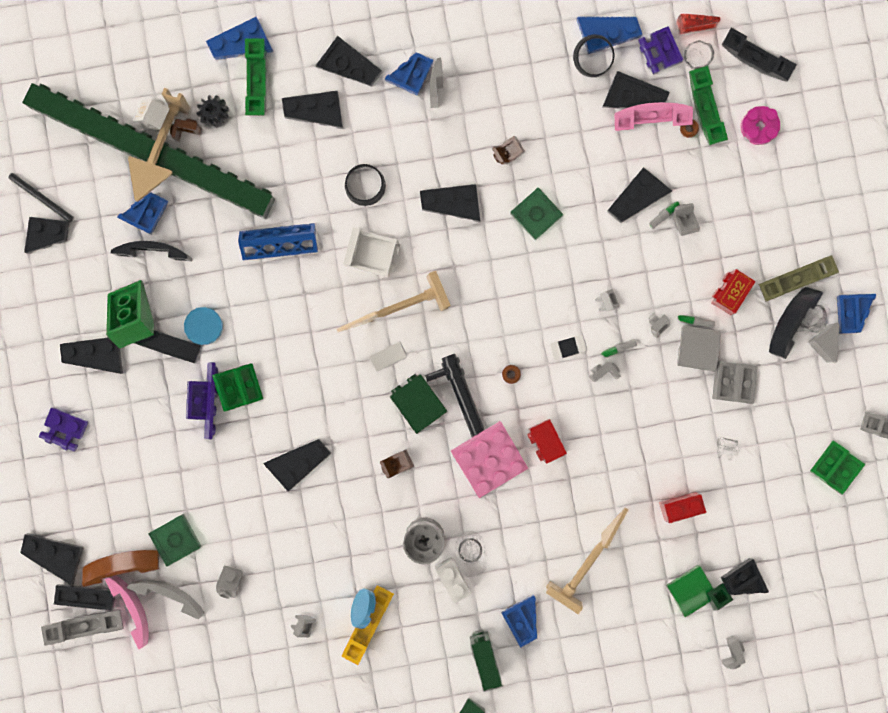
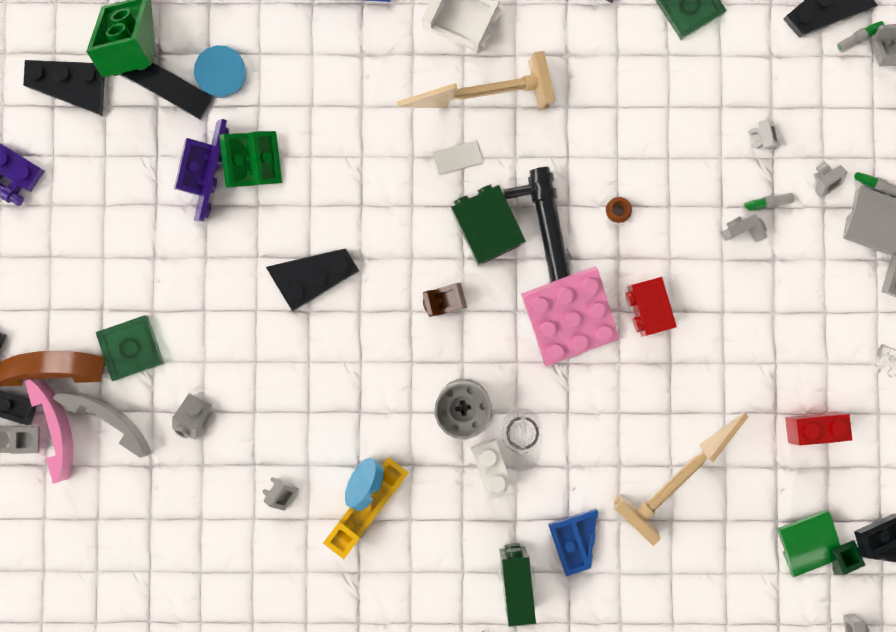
camera: 10 degrees right, 0 degrees up
(568, 347) = (700, 189): sticker -> none

